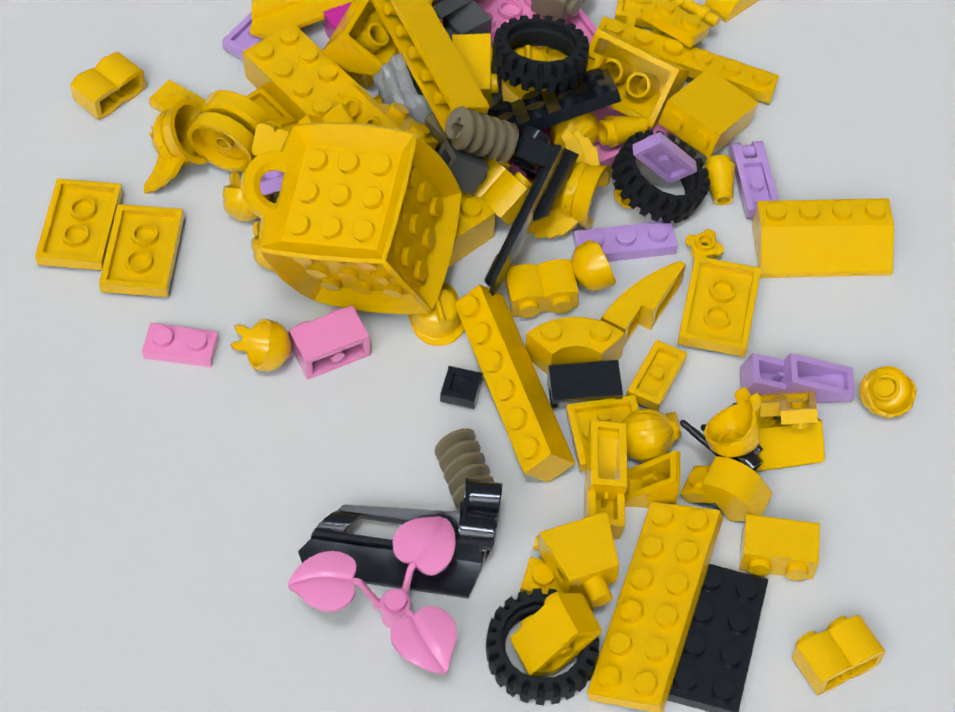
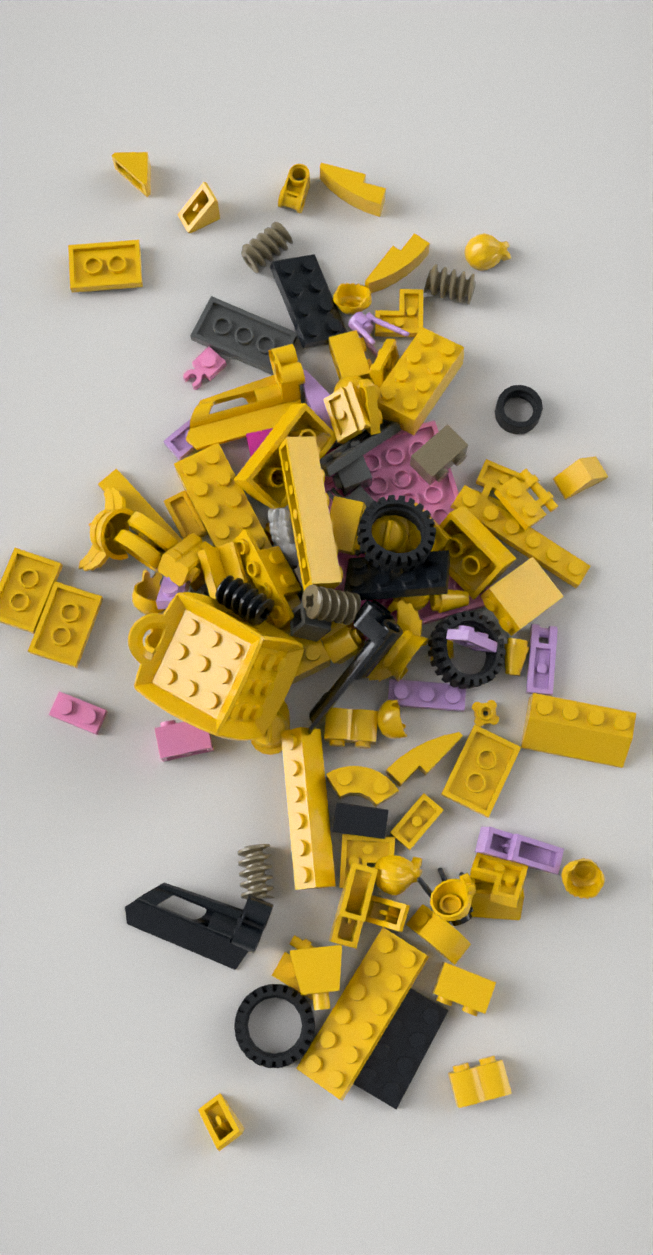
camera: 15 degrees right, 20 degrees up
(108, 85) = (68, 465): yellow brick -> none
(265, 344) = (137, 731): yellow piece -> none
(421, 638) = (191, 1015): bright pink plant -> none
(461, 387) = (270, 799): black plate -> none
(555, 633) = (283, 1026): yellow brick -> none

